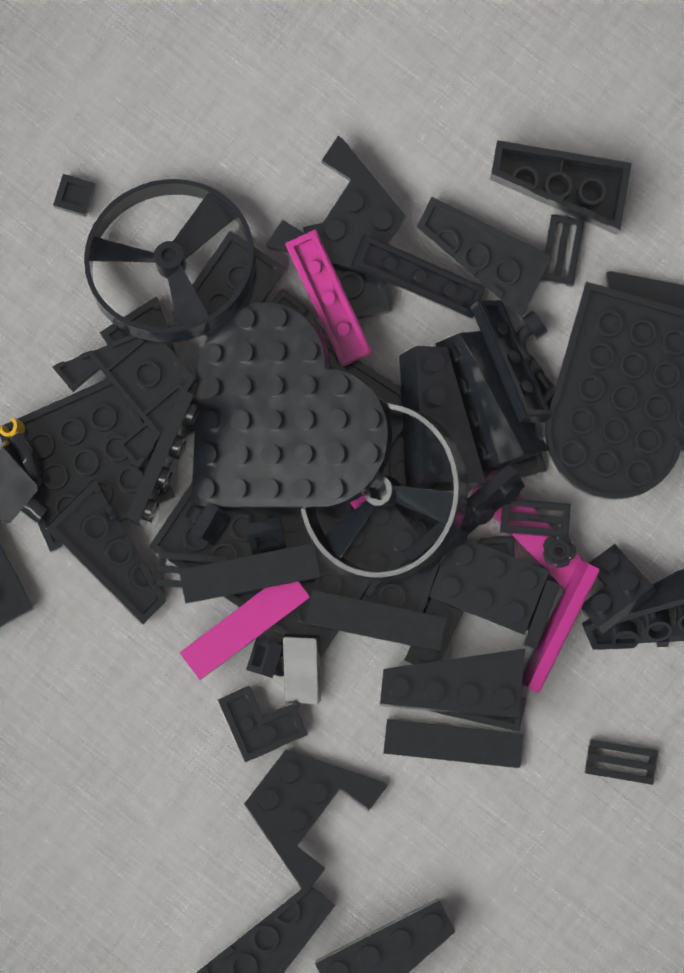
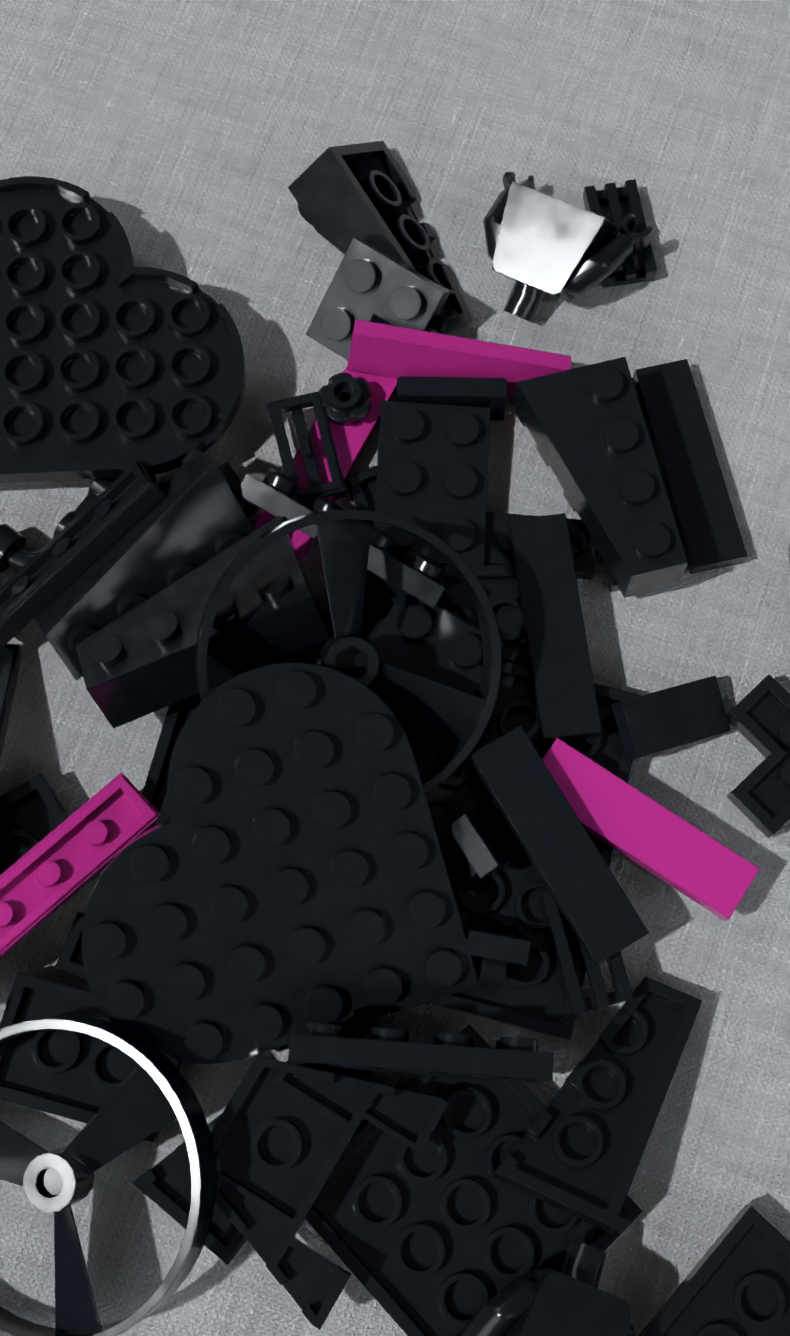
camera: 115 degrees left, 10 degrees down
(265, 658) = (678, 780): black tile -> none
(618, 709) = (553, 245): none -> torso

